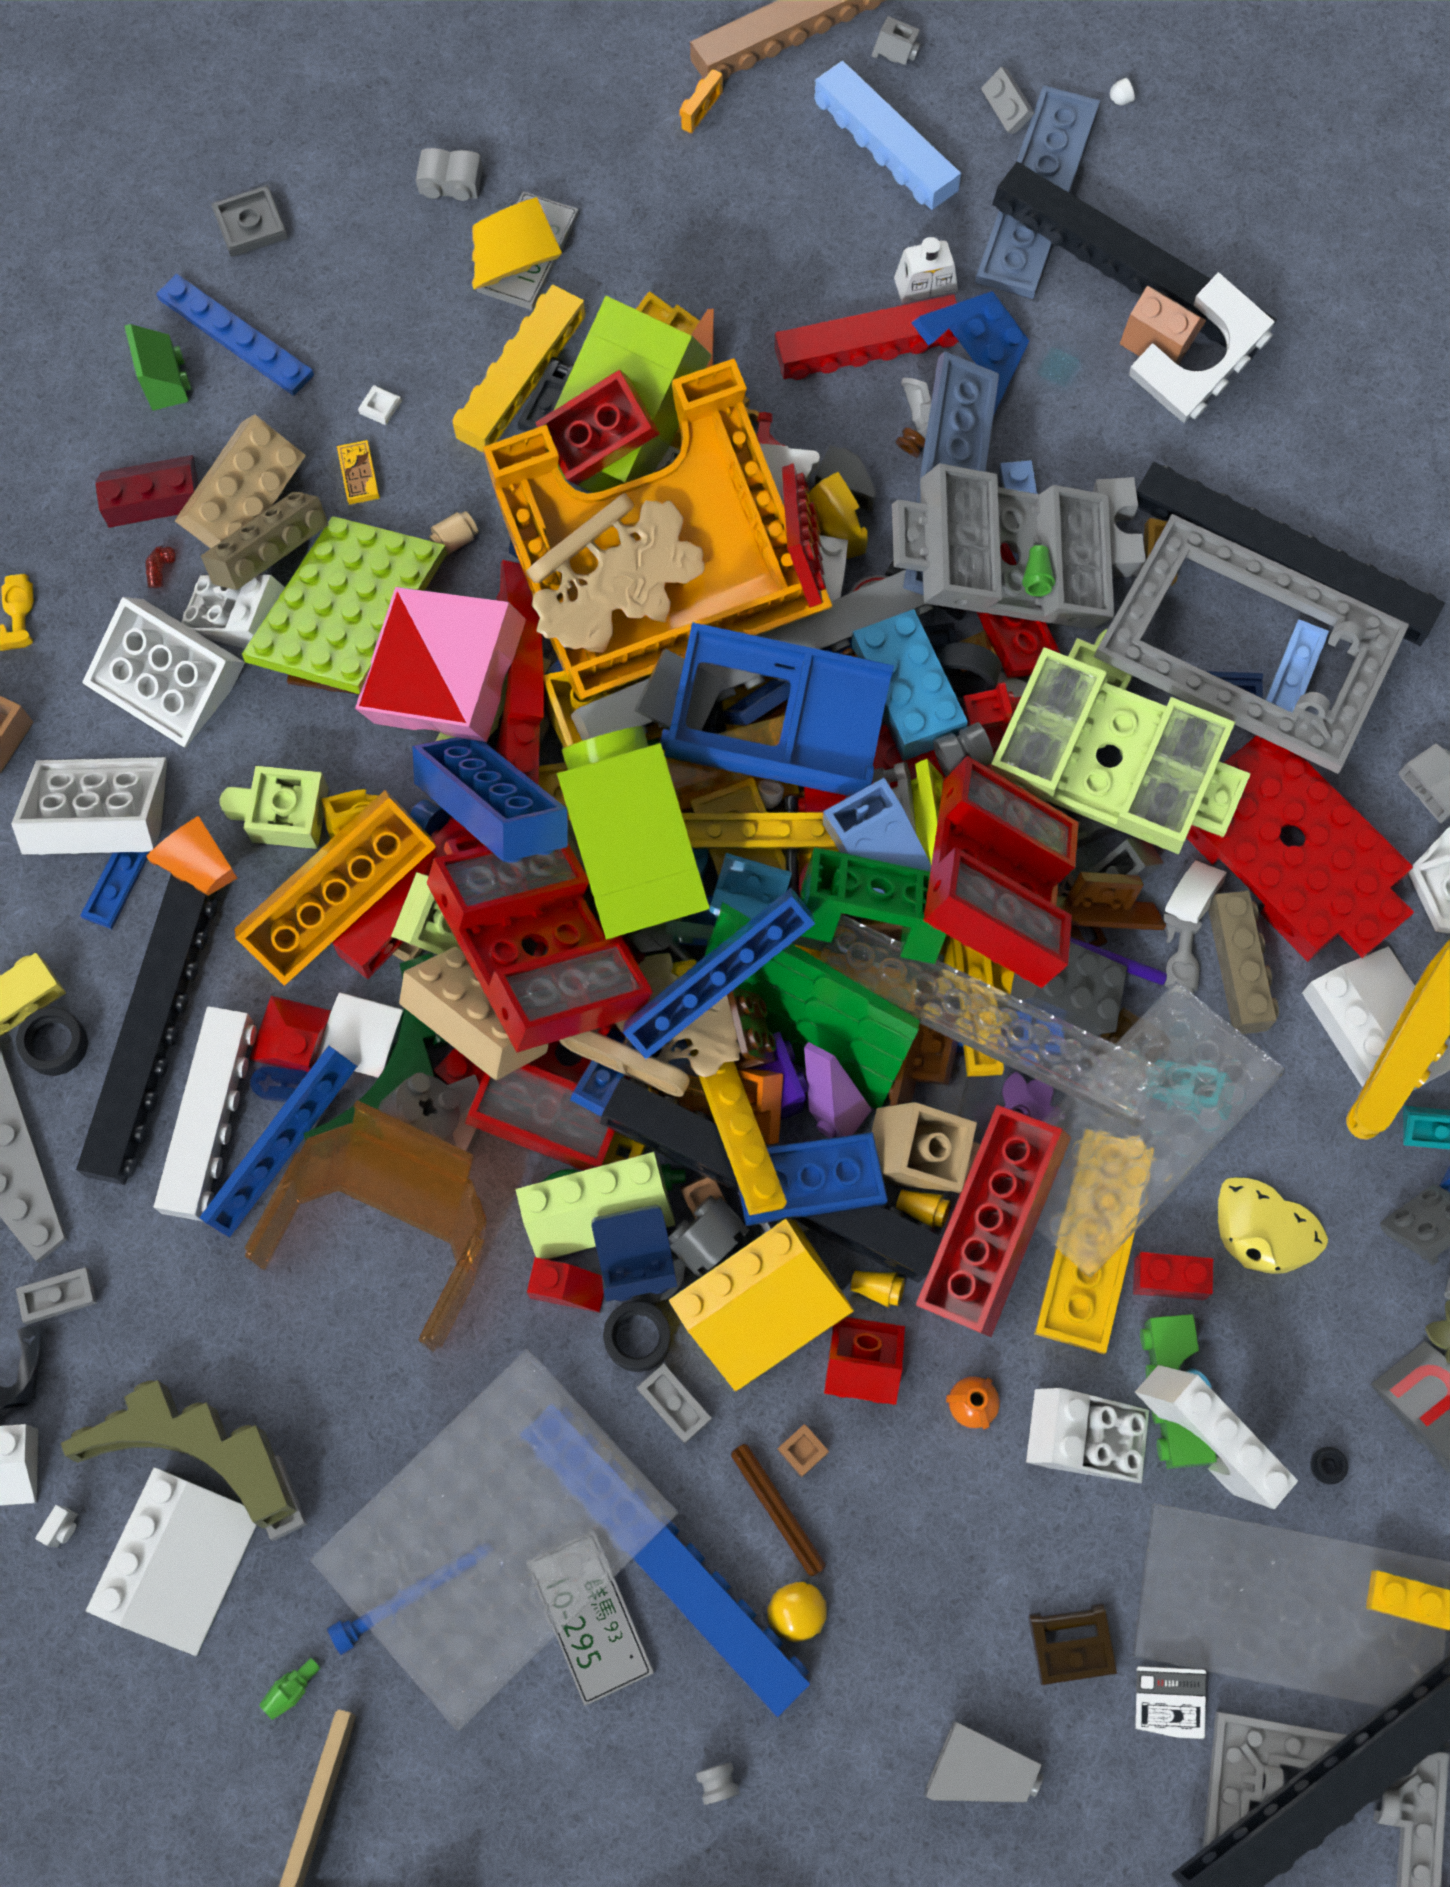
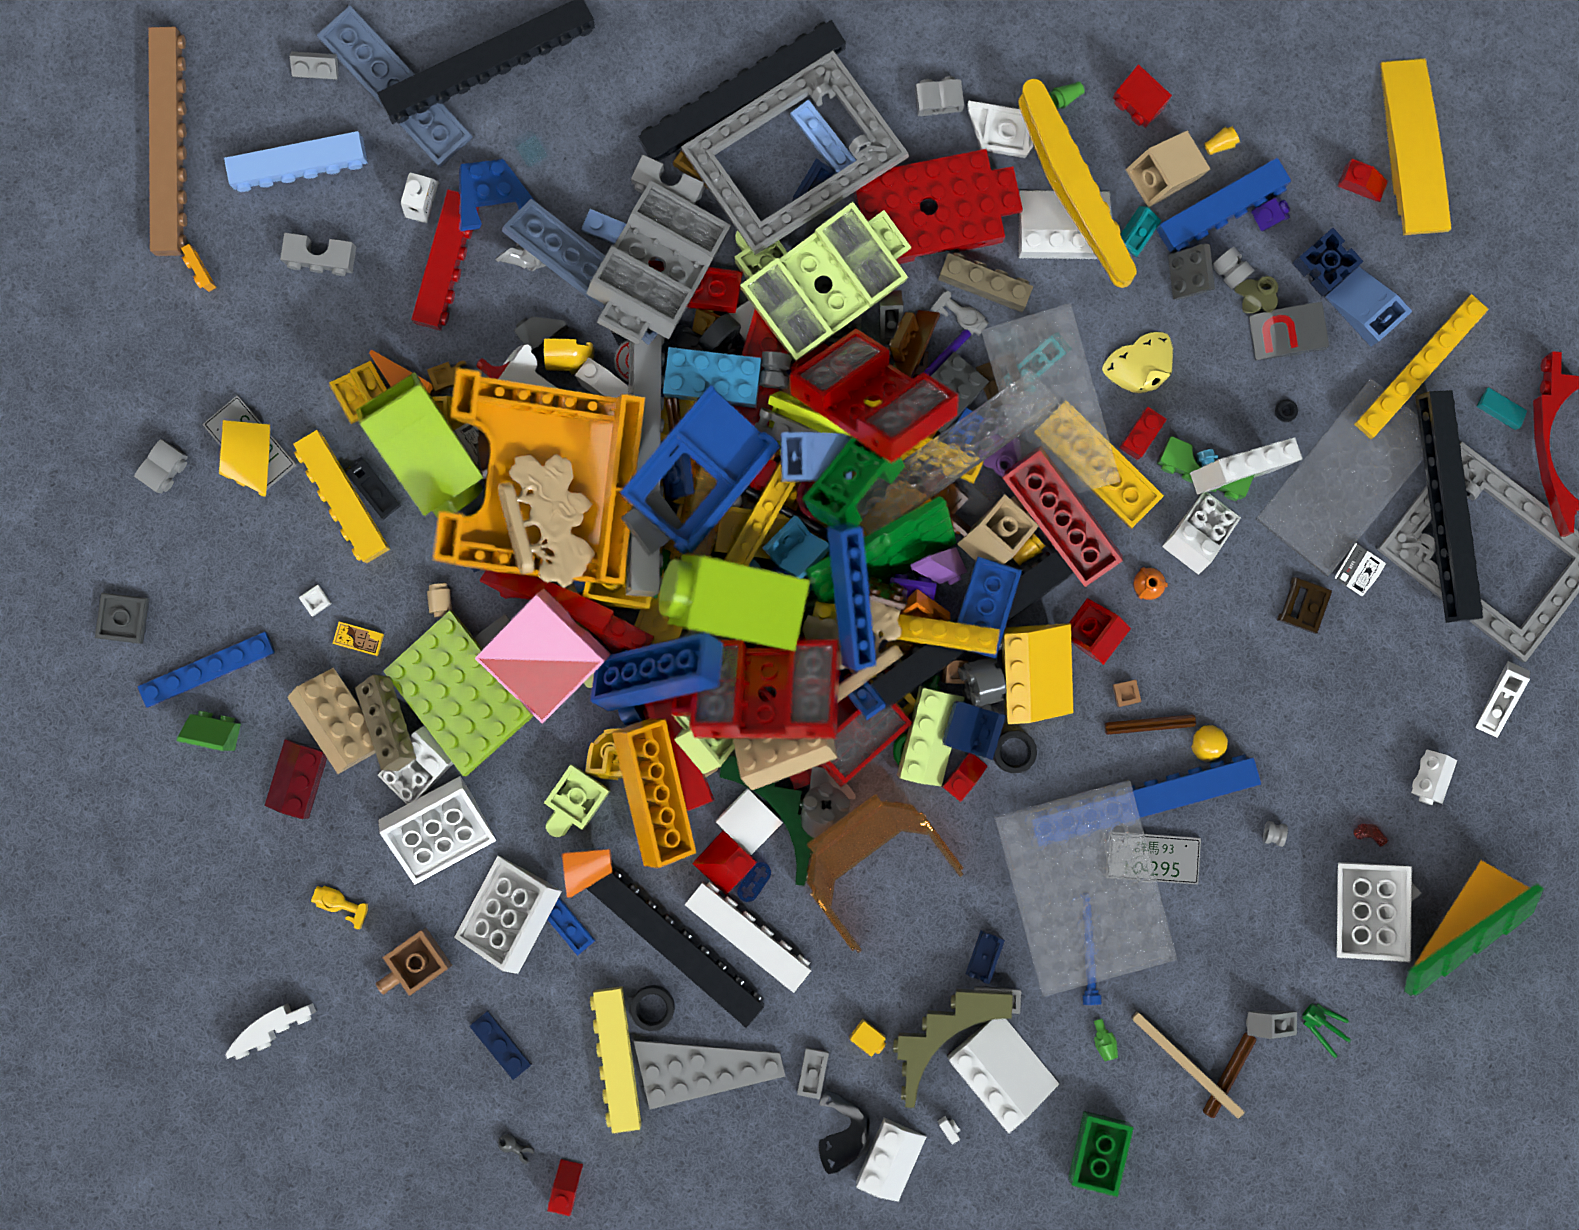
camera: 65 degrees left, 15 degrees up
(116, 1769) = (1100, 1153): none -> green brick
(138, 1344) = (868, 1038): none -> yellow brick
(155, 563) = (355, 801): clear red arm -> none
(278, 1142) = (791, 901): blue plate -> none
(328, 1448) = (985, 956): none -> dark blue hinge
(599, 427) = (446, 476): red brick -> none
(674, 1403) = (1063, 751): light grey plate -> none
(800, 228) = (337, 258): none -> light grey arch
(803, 534) = (589, 389): red plate -> none
(879, 1286) = (1059, 600): yellow cone -> none
(897, 41) = (225, 111): light grey brick -> none
(910, 442) = (535, 276): reddish brown bush -> none
(981, 1770) = (1341, 691): light grey slope -> none
(989, 707) = (754, 338): red bracket -> none
(1038, 575) = (682, 255): bright green cone -> none
(1163, 323) = (547, 72): nougat slope -> none
(1185, 390) = (583, 24): white arch -> none
(1195, 892) = (928, 282): white slope -> none

